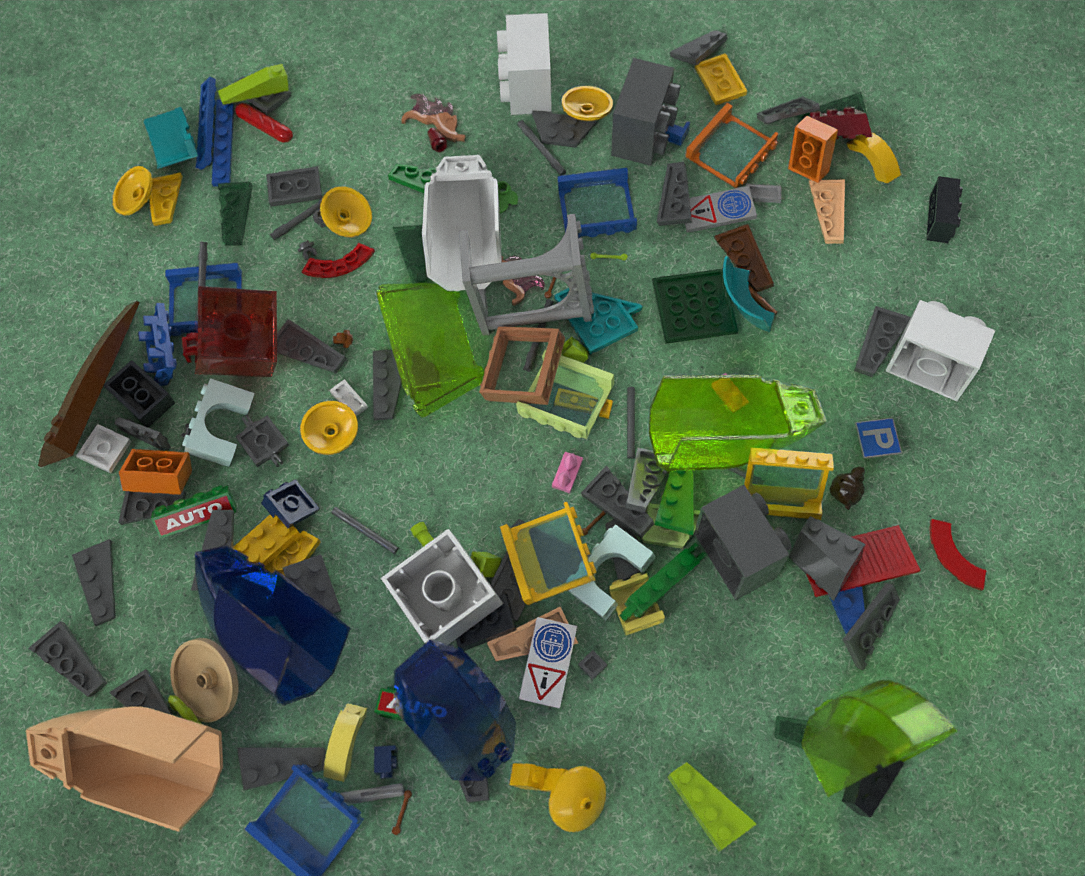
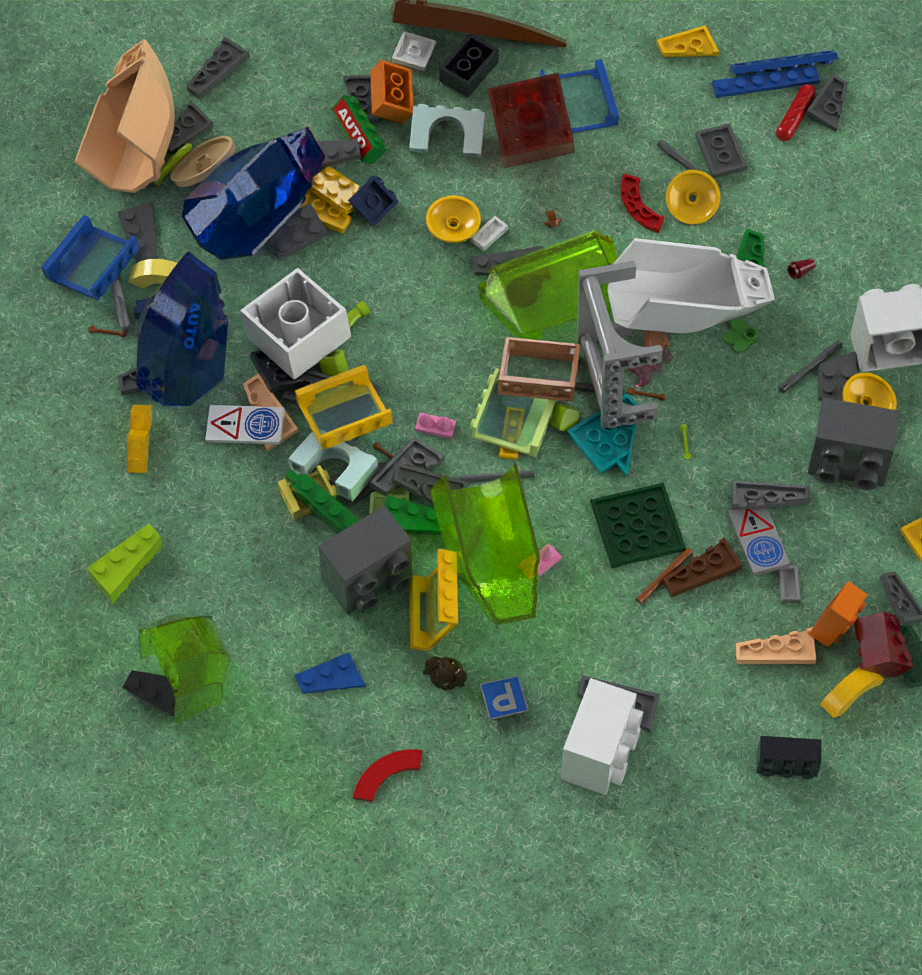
camera: 80 degrees right, 5 degrees down
(97, 580) = (293, 71): dark grey wing -> none
(132, 191) = (687, 16): yellow dish -> none
(143, 433) = (429, 77): dark grey wing -> none
(163, 350) = (511, 72): blue piece -> none
(170, 137) = (758, 38): teal panel -> none
(203, 258) = (596, 89): dark grey piece -> none
(234, 210) = (690, 105): clear green wing -> none
(261, 83) = (838, 98): lime wedge -> none
(262, 441) = (436, 171): dark grey plate -> none
(304, 347) = (540, 187): dark grey wing -> none
(305, 247) = (650, 171): dark grey plate -> none
(365, 530) = (360, 264): dark grey bar -> none
(435, 114) = (836, 264): nougat piece -> none
(571, 793) = (132, 453): yellow dish -> none
(592, 665) = (246, 462): dark grey plate -> none
(595, 203) = (742, 427): panel -> none
(678, 134) = (851, 494): blue panel -> none
(730, 152) = (844, 550): panel -> none
(737, 286) = (644, 555): teal panel -> none
(826, 555) = (368, 648): dark grey wedge -> none
(871, 625) = (296, 686): dark grey wing -> none
(883, 558) = (370, 682): red window -> none

